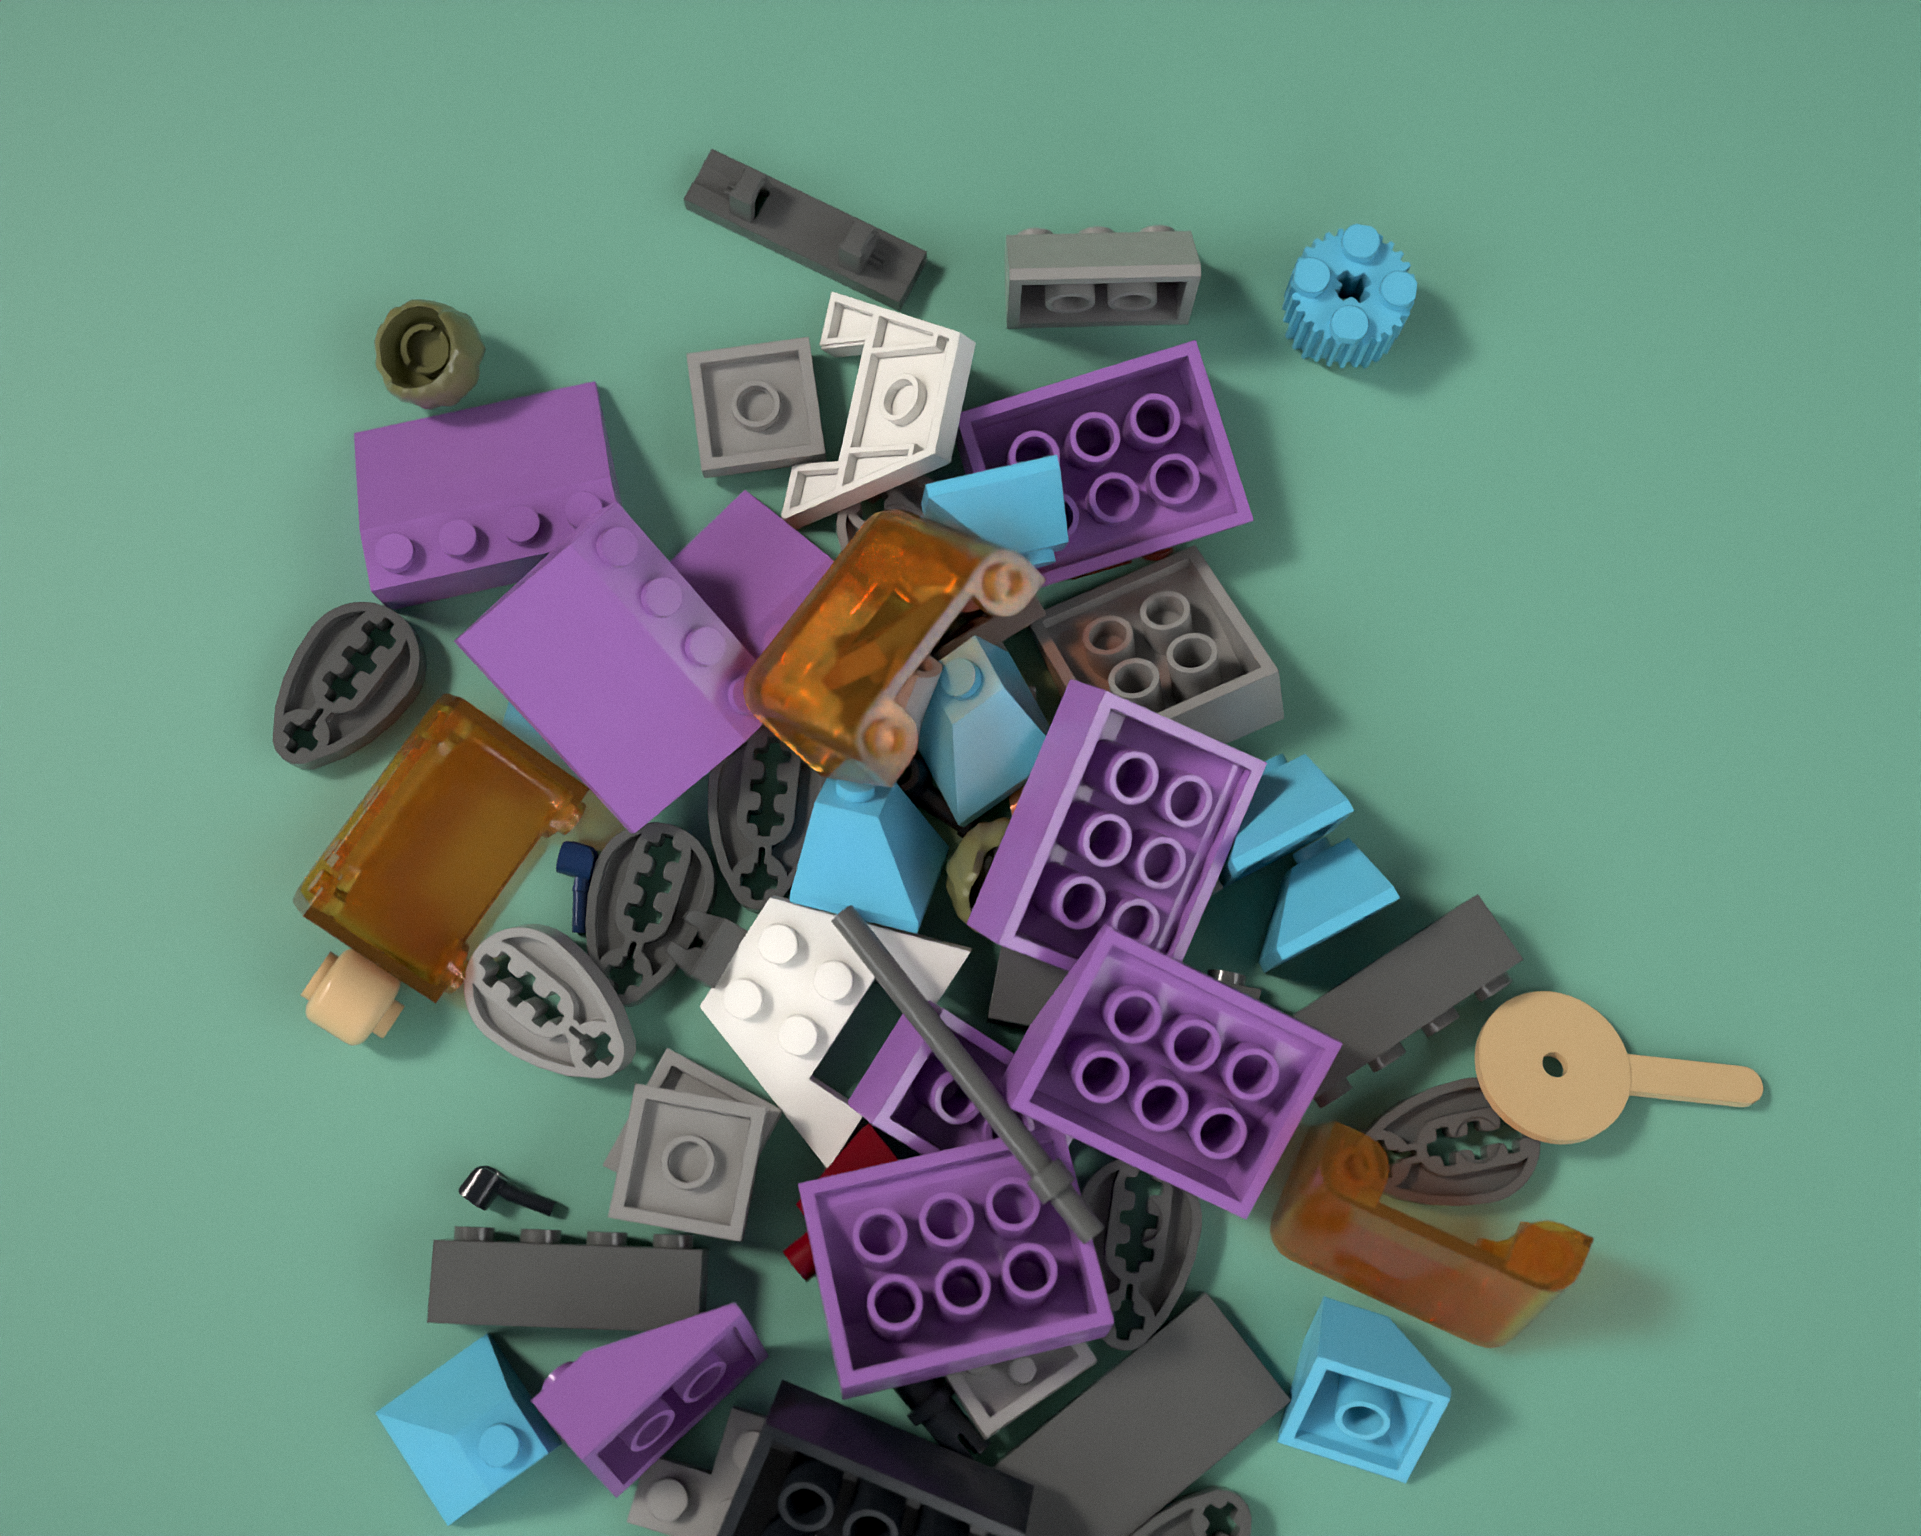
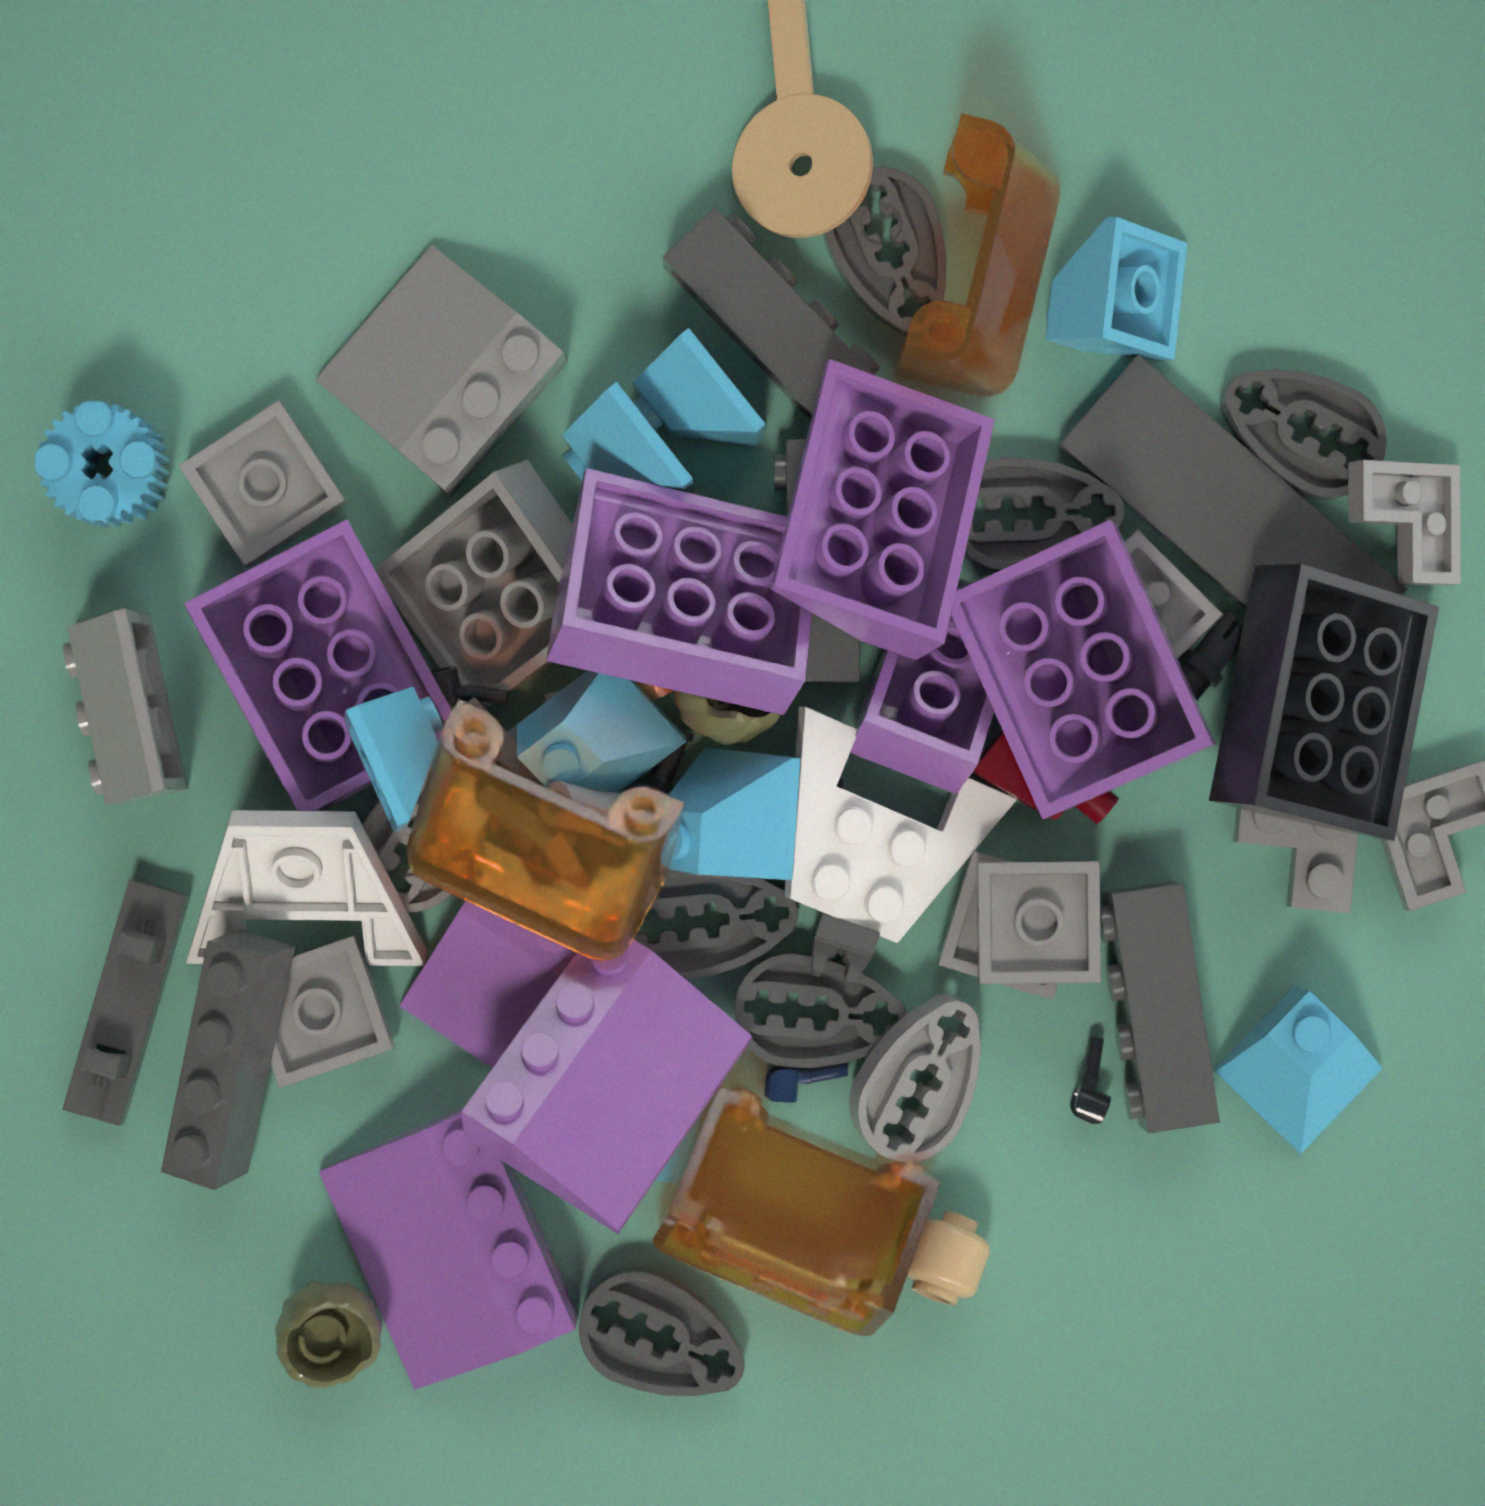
camera: 100 degrees left, 10 degrees up
(645, 1392) = (1247, 921): medium lavender slope -> none
(726, 304) = (227, 1058): none -> dark grey brick
(1050, 1178) = (997, 599): dark grey bar -> none
(1057, 596) = (449, 684): none -> black hand
(1303, 452) = (263, 484): none -> light grey plate
(1388, 652) = (442, 369): none -> light grey slope

